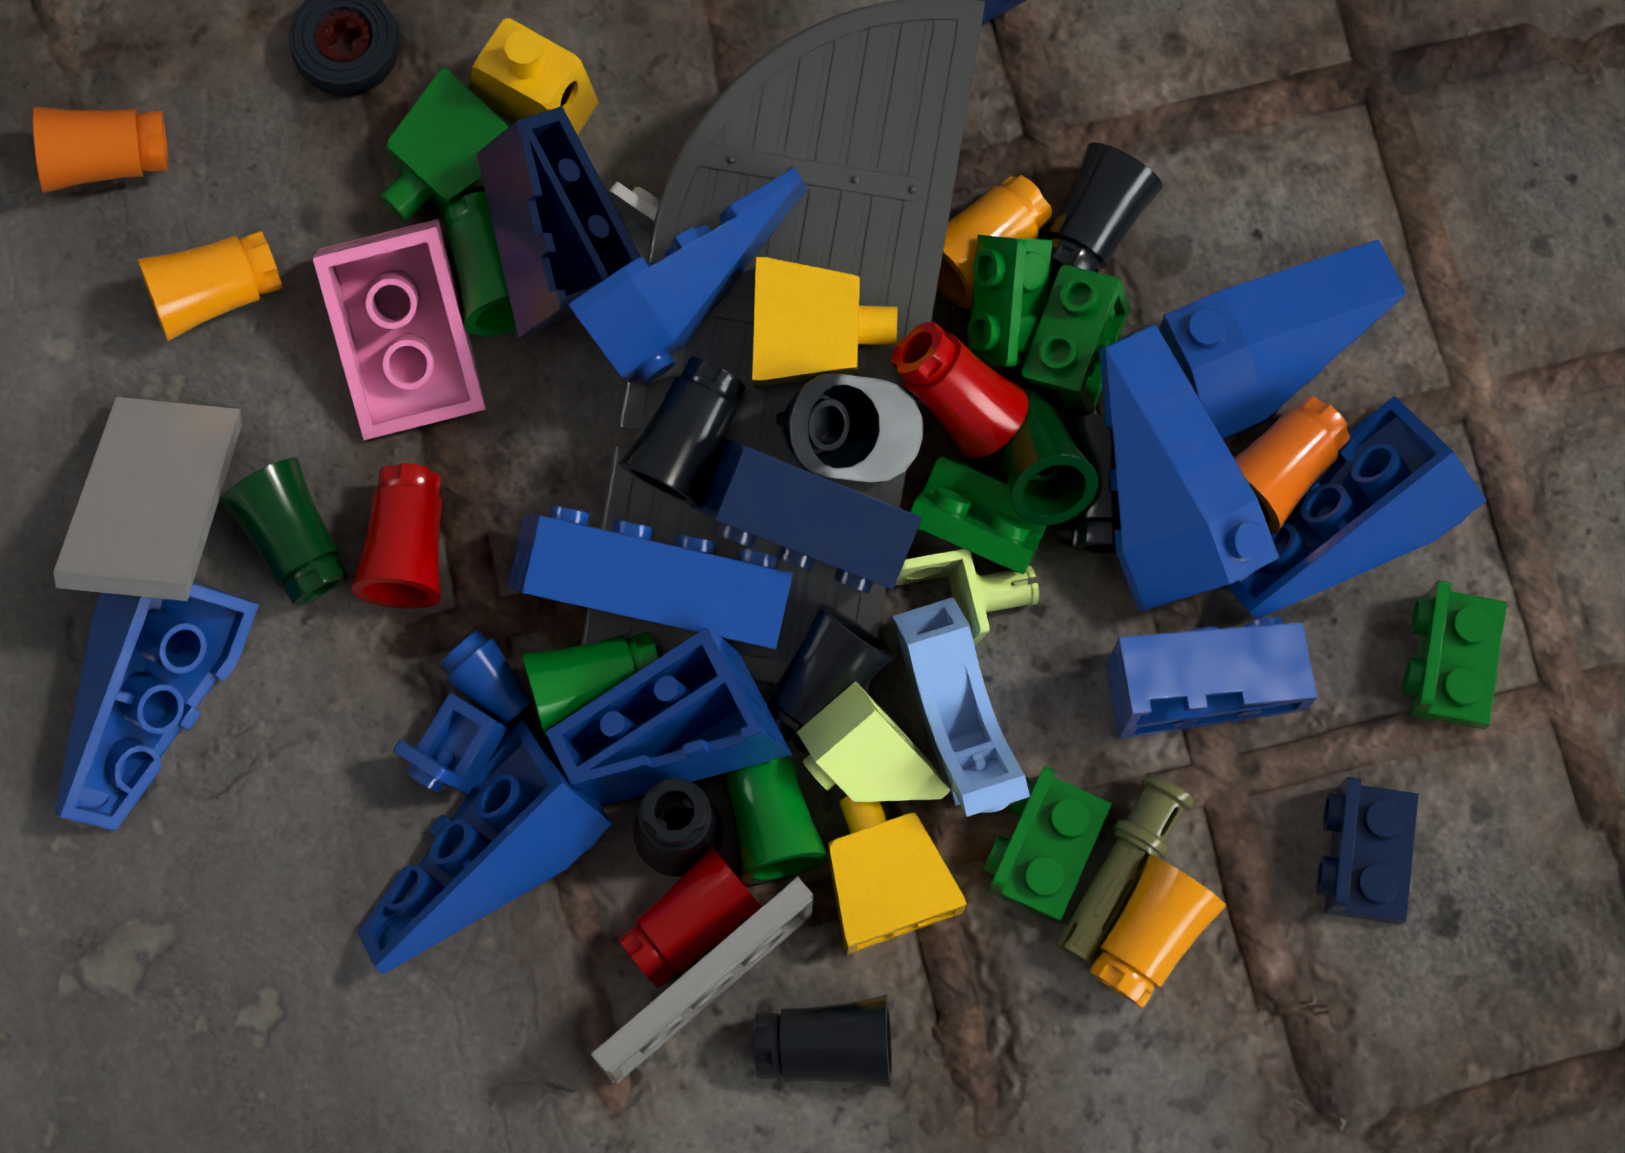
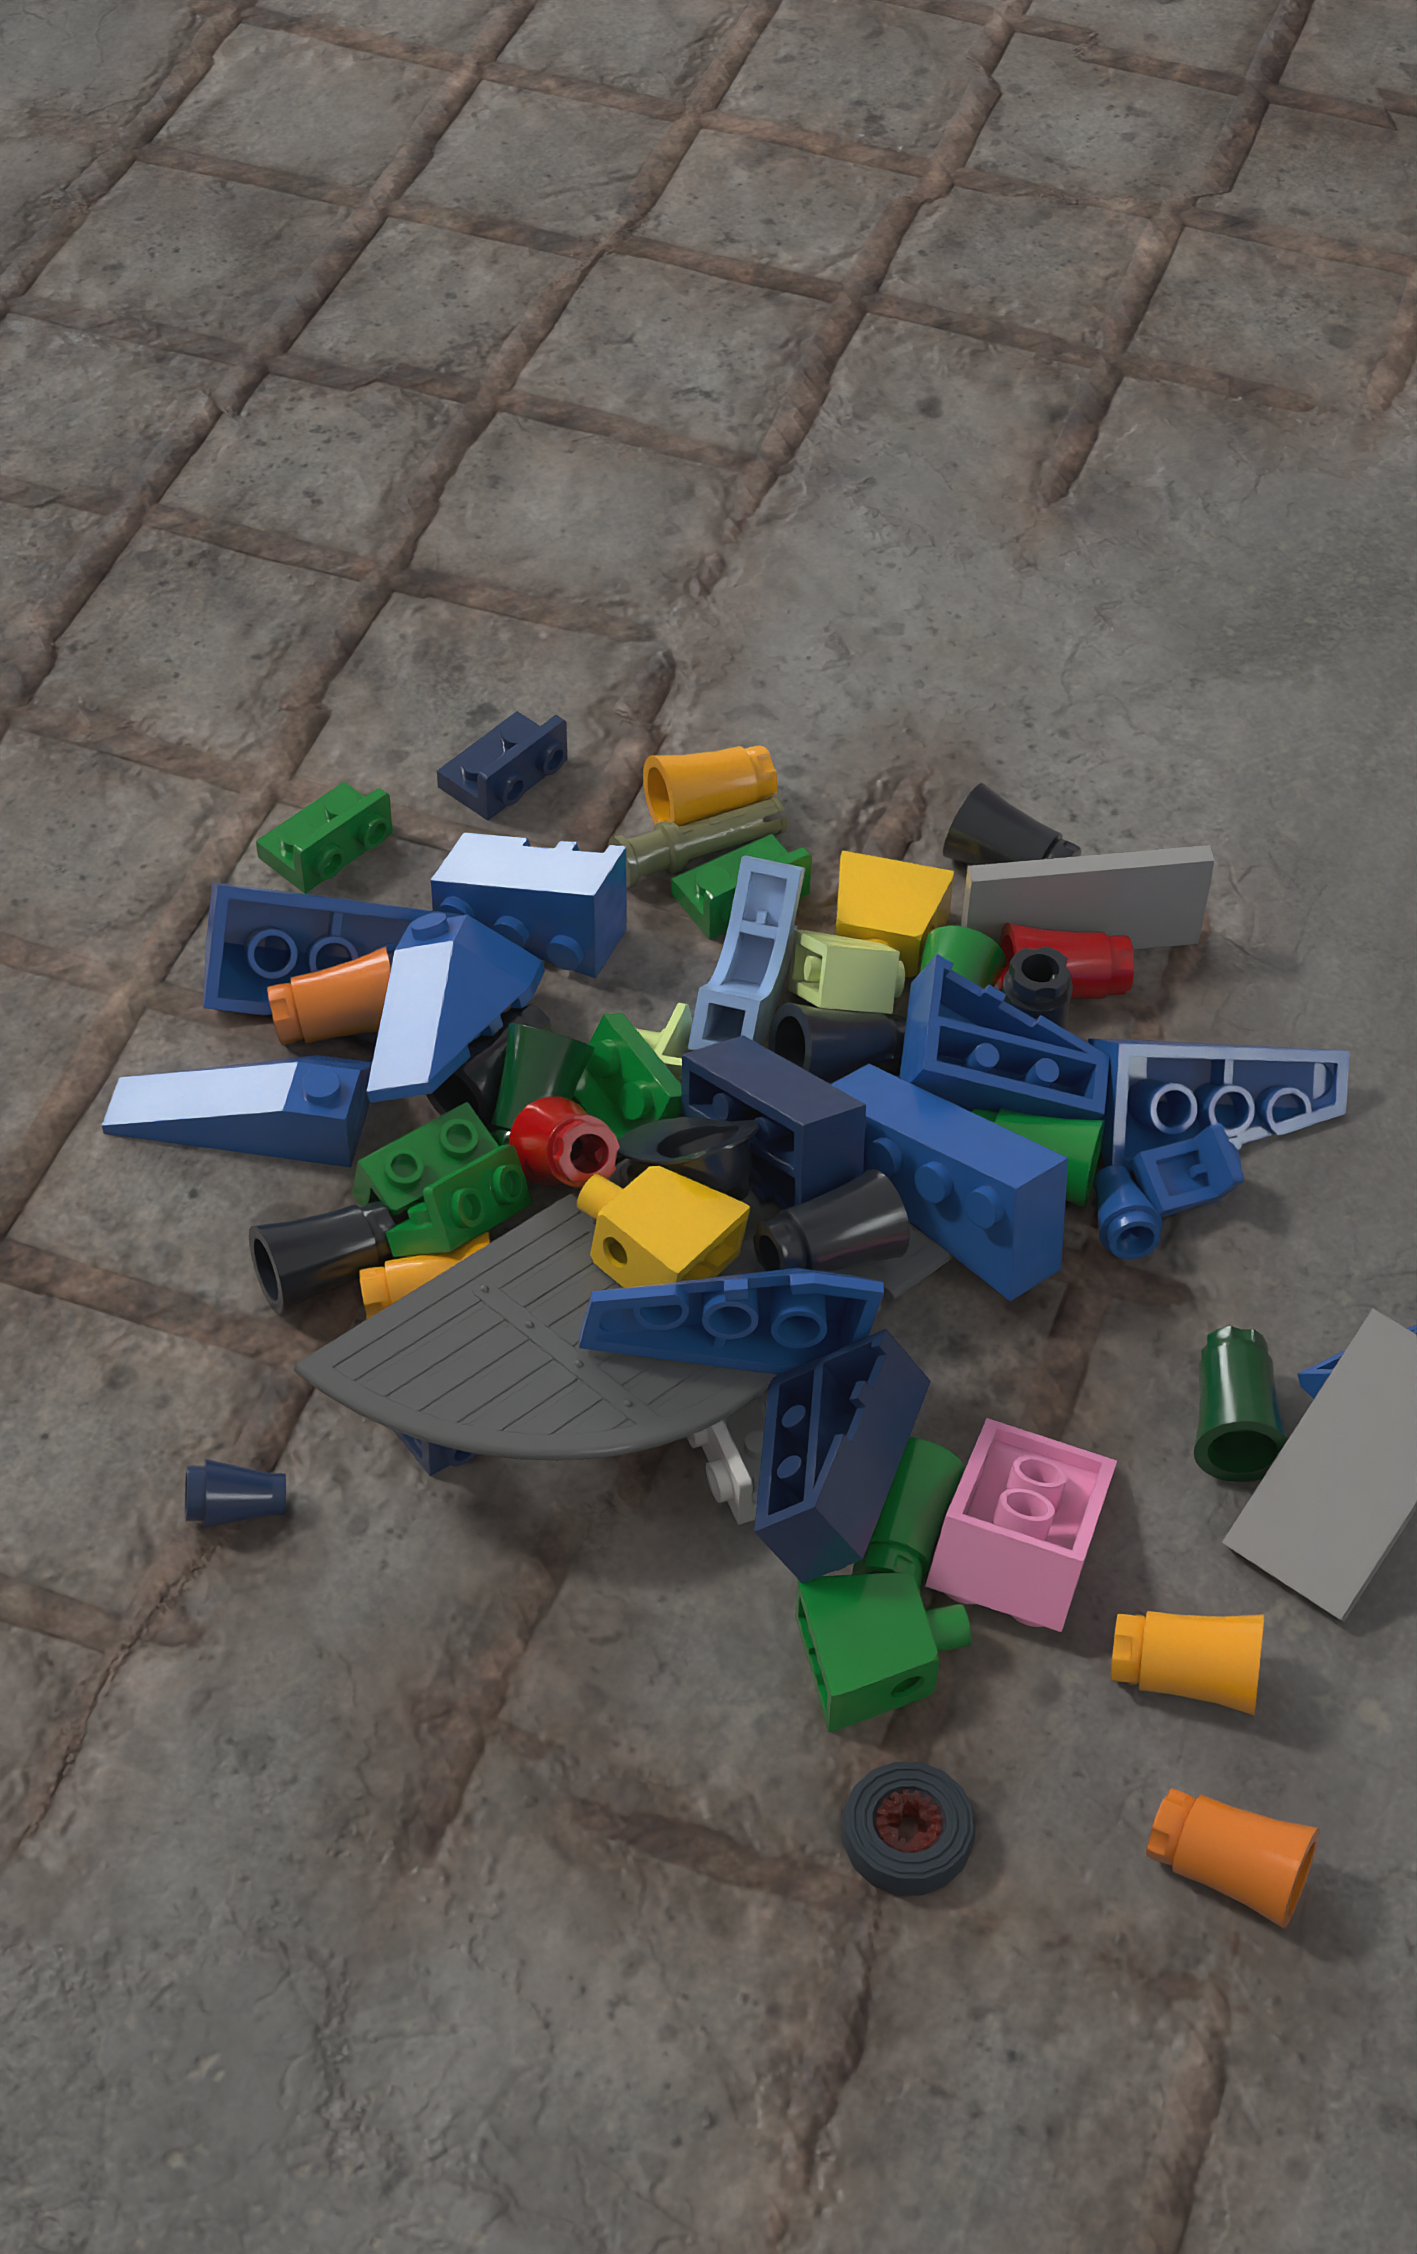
camera: 145 degrees left, 25 degrees down
(402, 540) = (1135, 1339): red plant -> none
(529, 74) = (745, 1634): yellow torso -> none

